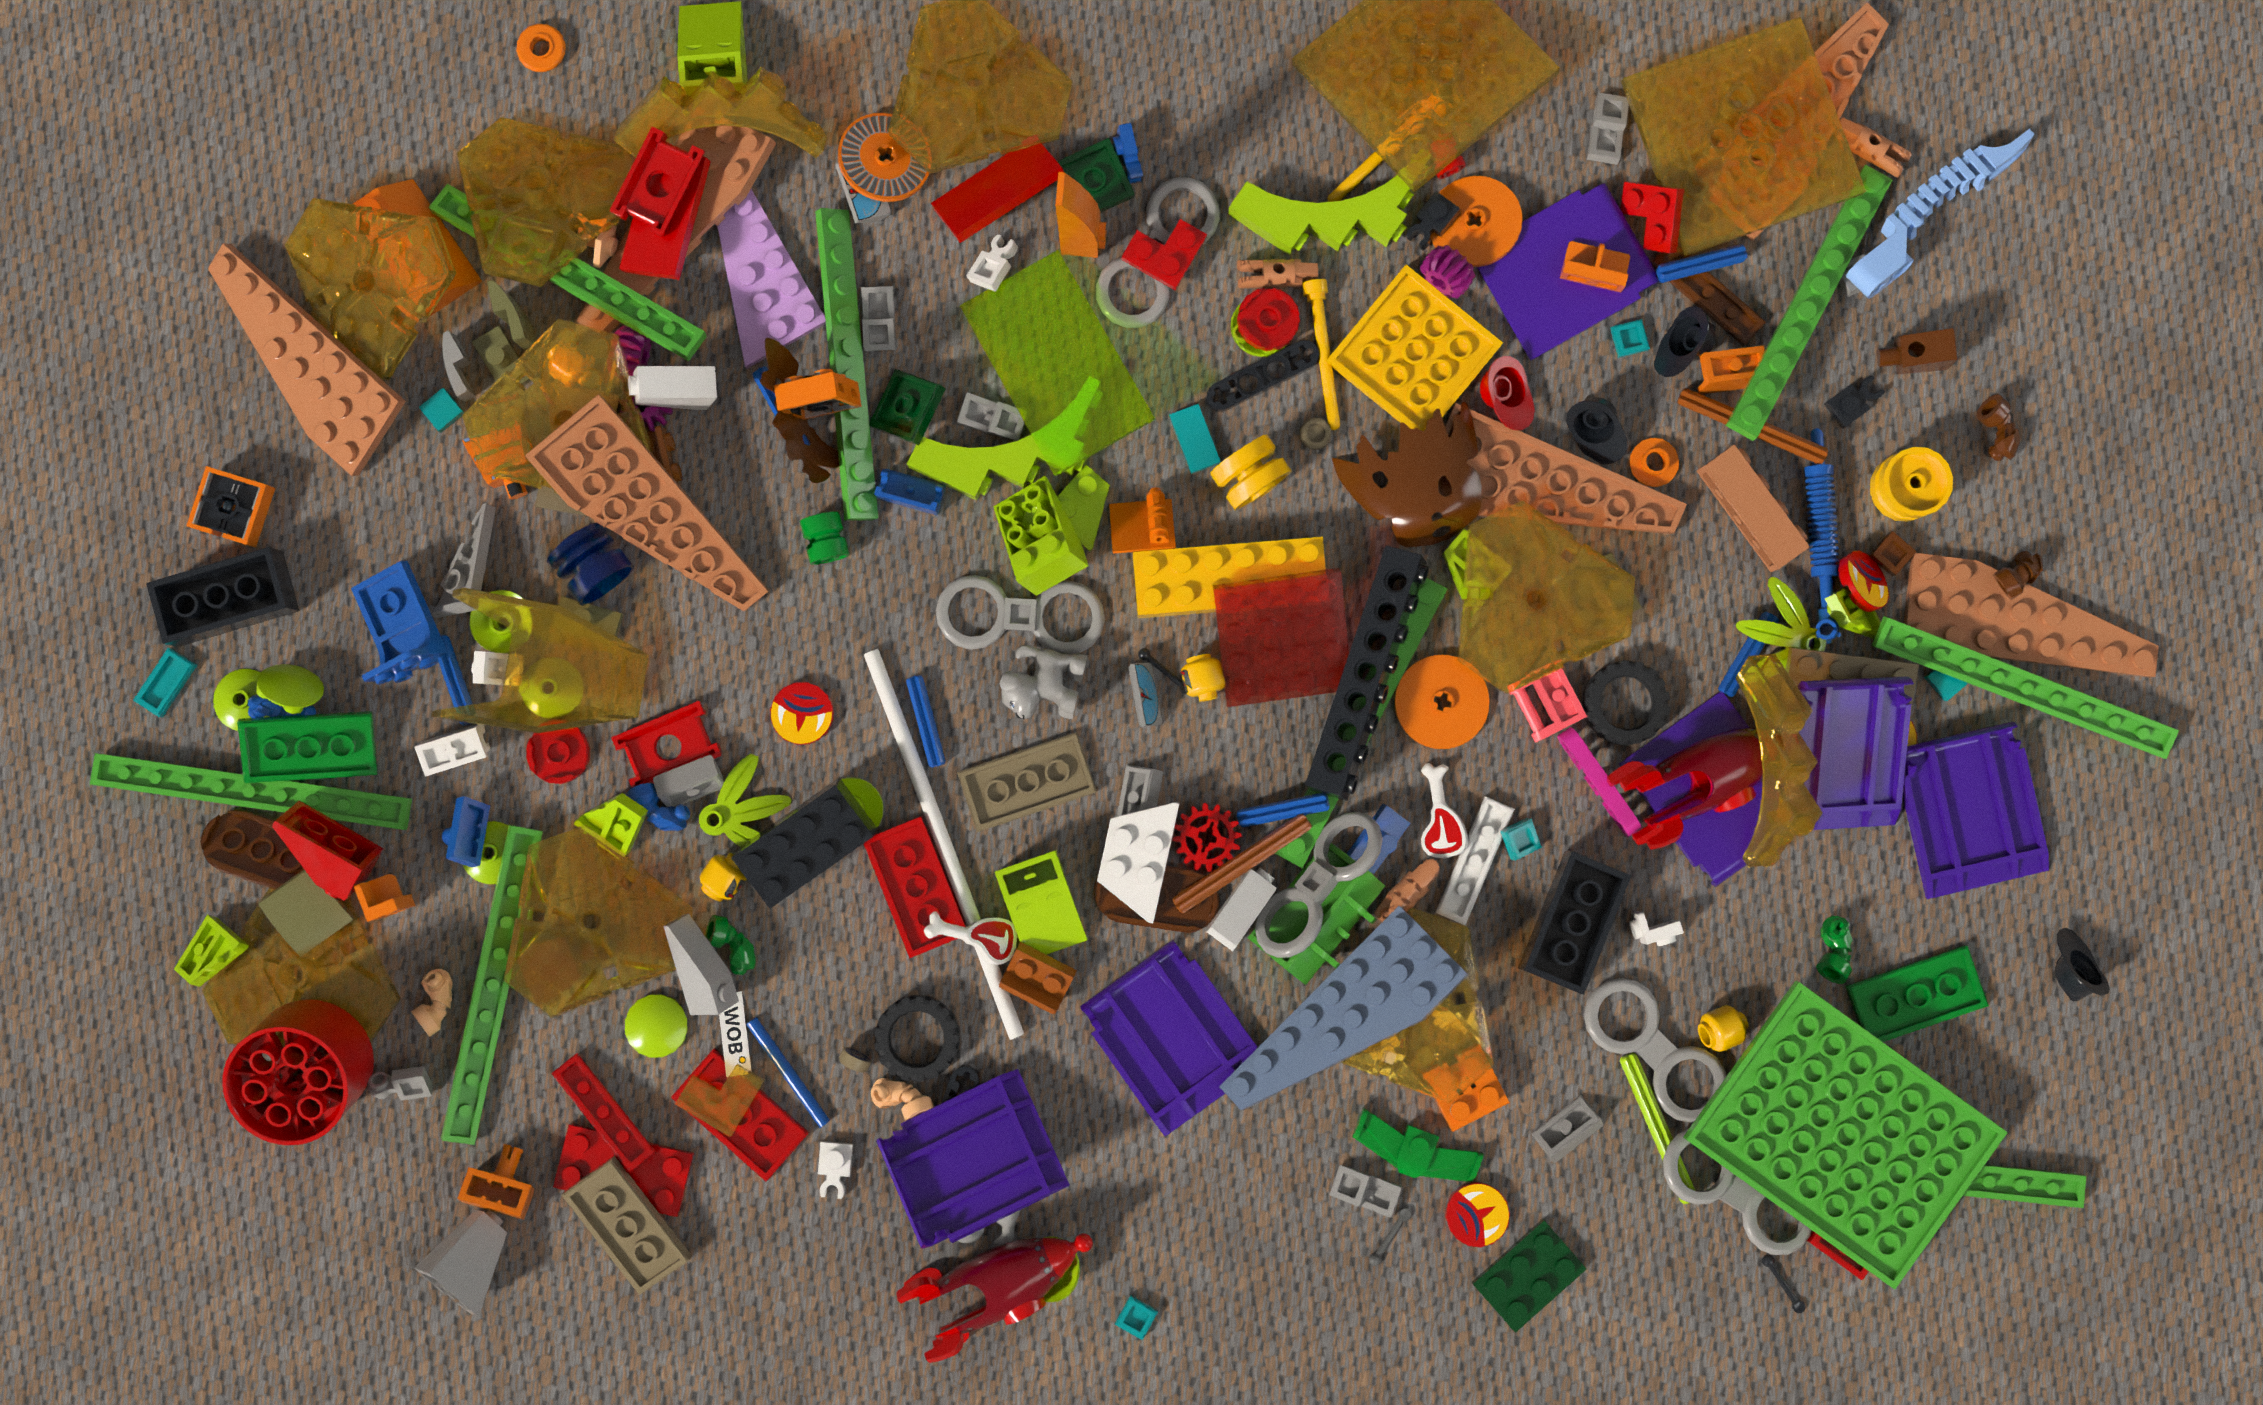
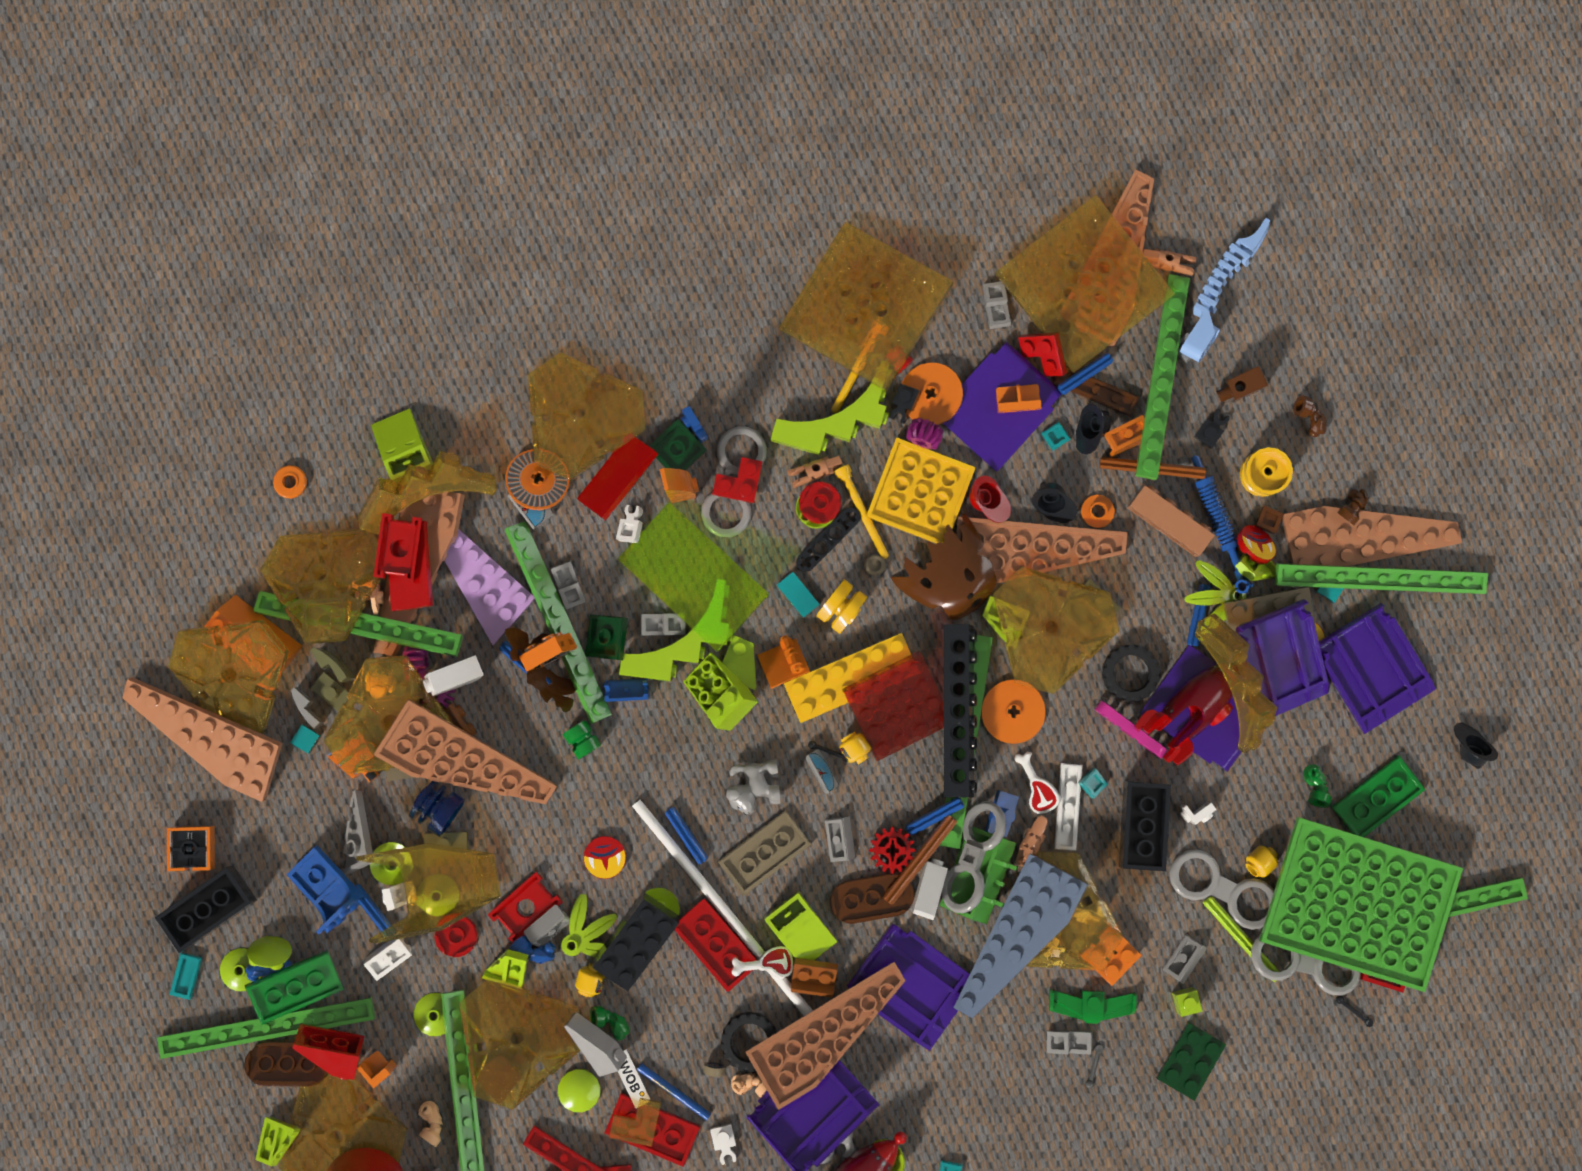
camera: 20 degrees left, 0 degrees up
(304, 913) = (329, 1095): olive slope -> none
(467, 832) = (415, 1007): blue tile -> none
(994, 1074) = (809, 1048): none -> nougat wing
(1019, 615) = (723, 746): light grey bar -> none
(1137, 857) = (852, 877): white wing -> none
(1477, 1214) = (1145, 1033): tile -> none
(1551, 1189) = (1187, 1001): none -> lime brick
(1558, 701) = (1088, 686): coral plate -> none

